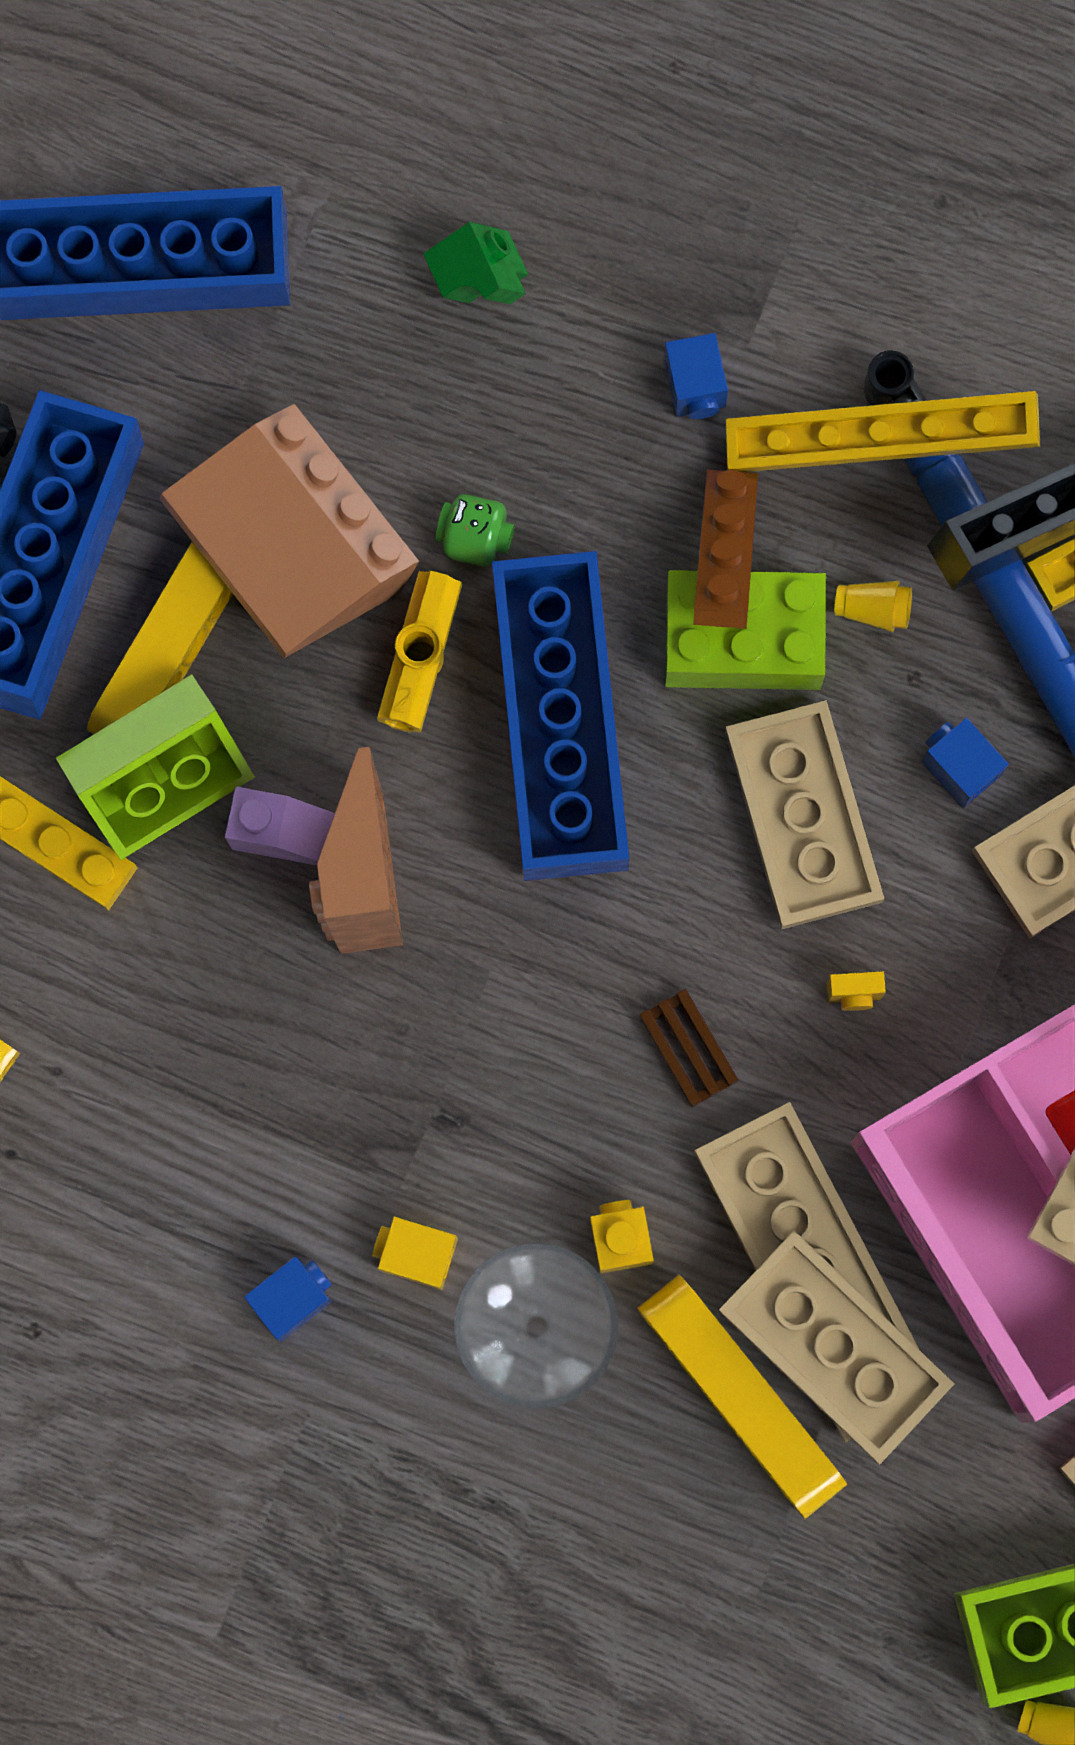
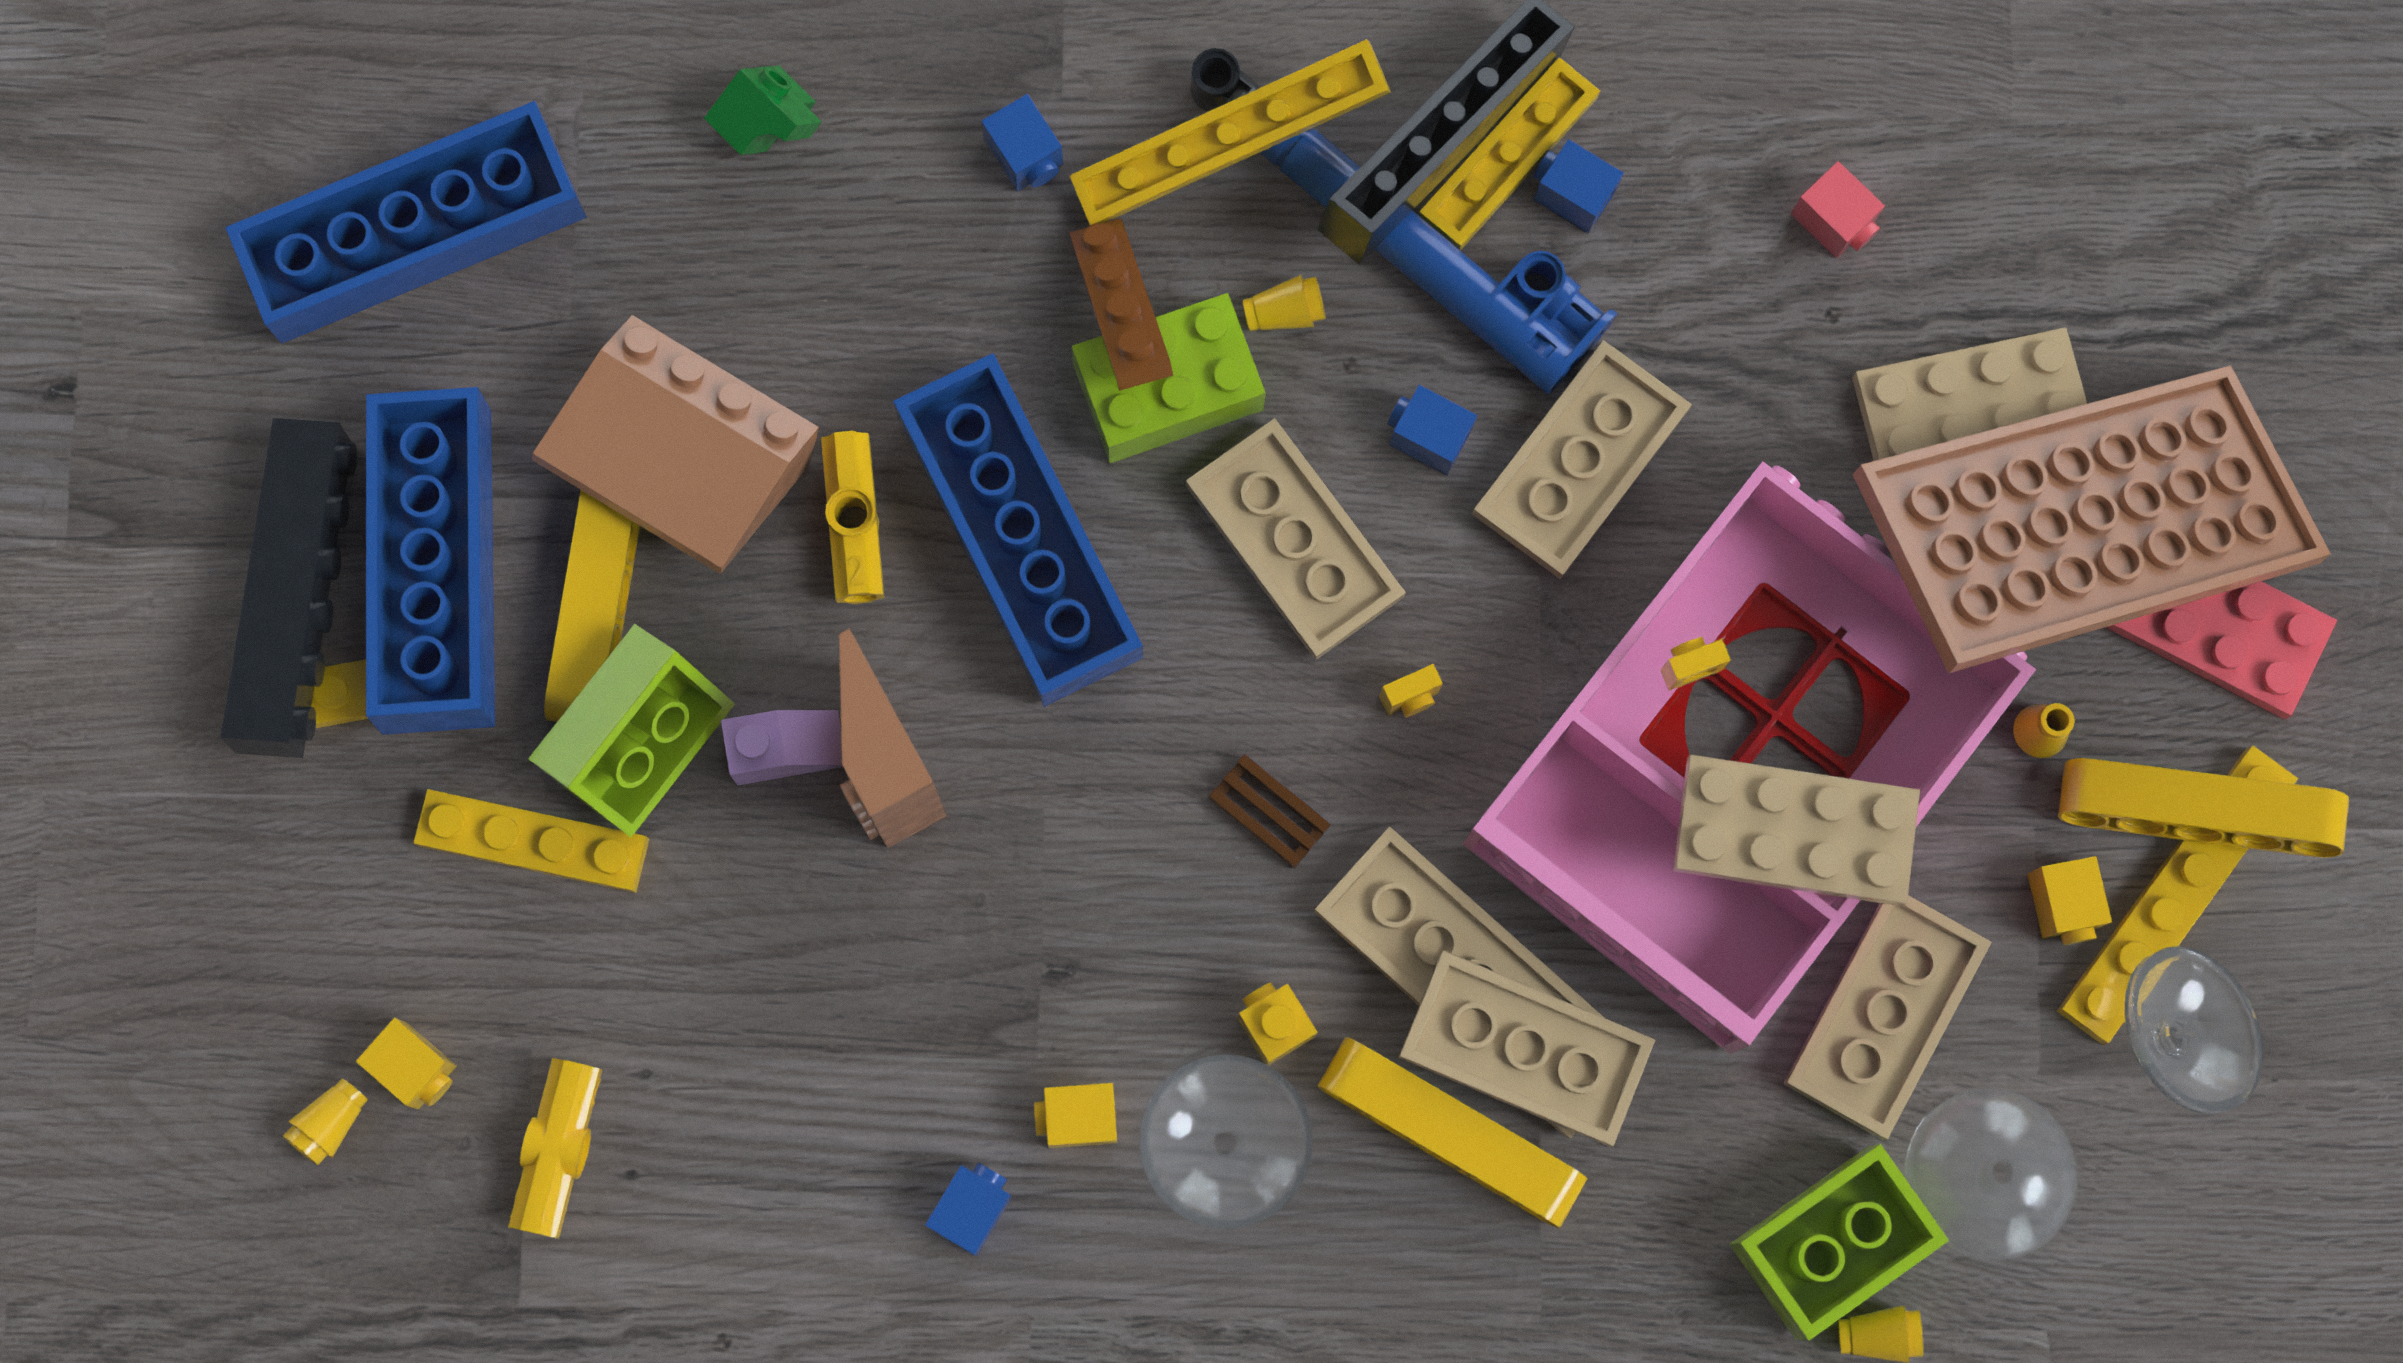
camera: 30 degrees left, 0 degrees up
(474, 530) = (861, 376): bright green head -> none

